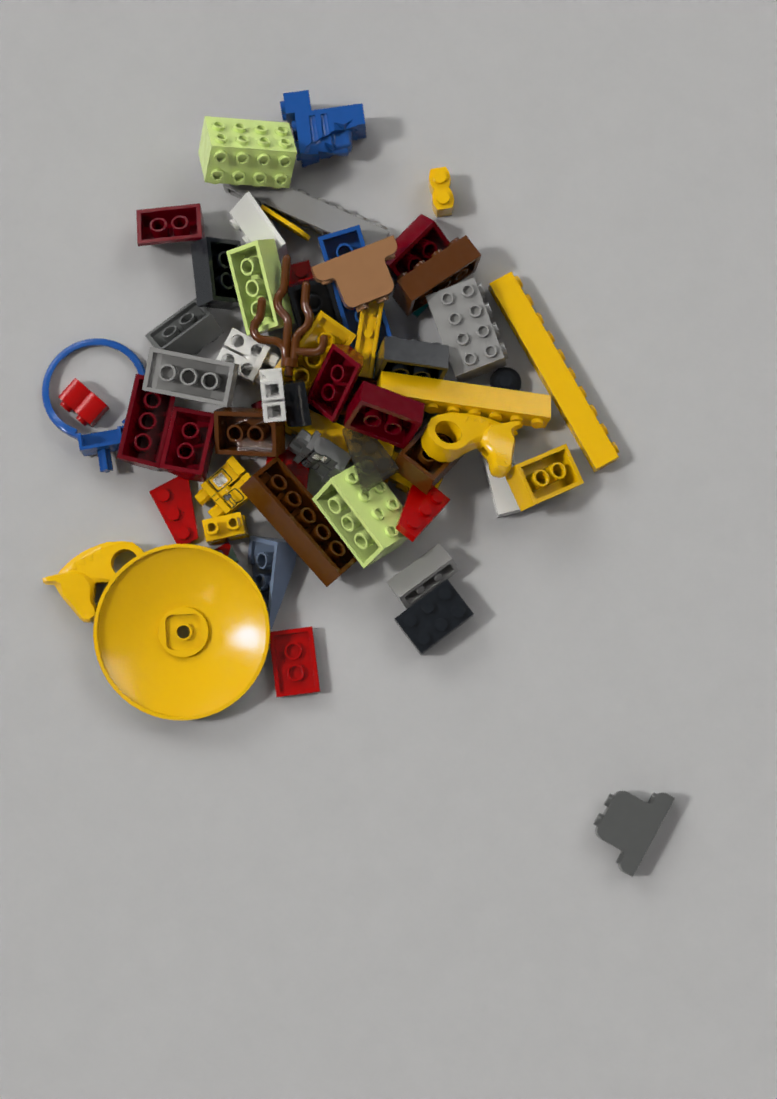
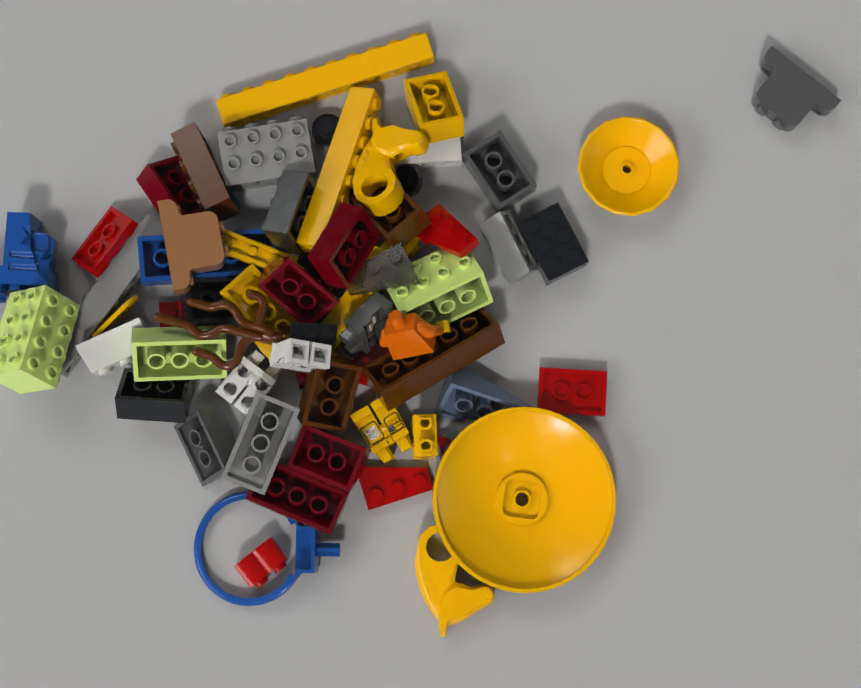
camera: 85 degrees left, 0 degrees up
(169, 224) = (92, 437): dark red slope -> none
(312, 494) = (410, 334): none -> orange torso
(355, 197) = (104, 241): none -> red plate
(441, 193) = (111, 156): yellow brick -> none
(469, 467) = (410, 179): none -> black plate
(493, 552) = (499, 172): none -> dark grey brick
(547, 673) = (634, 145): none -> yellow dish

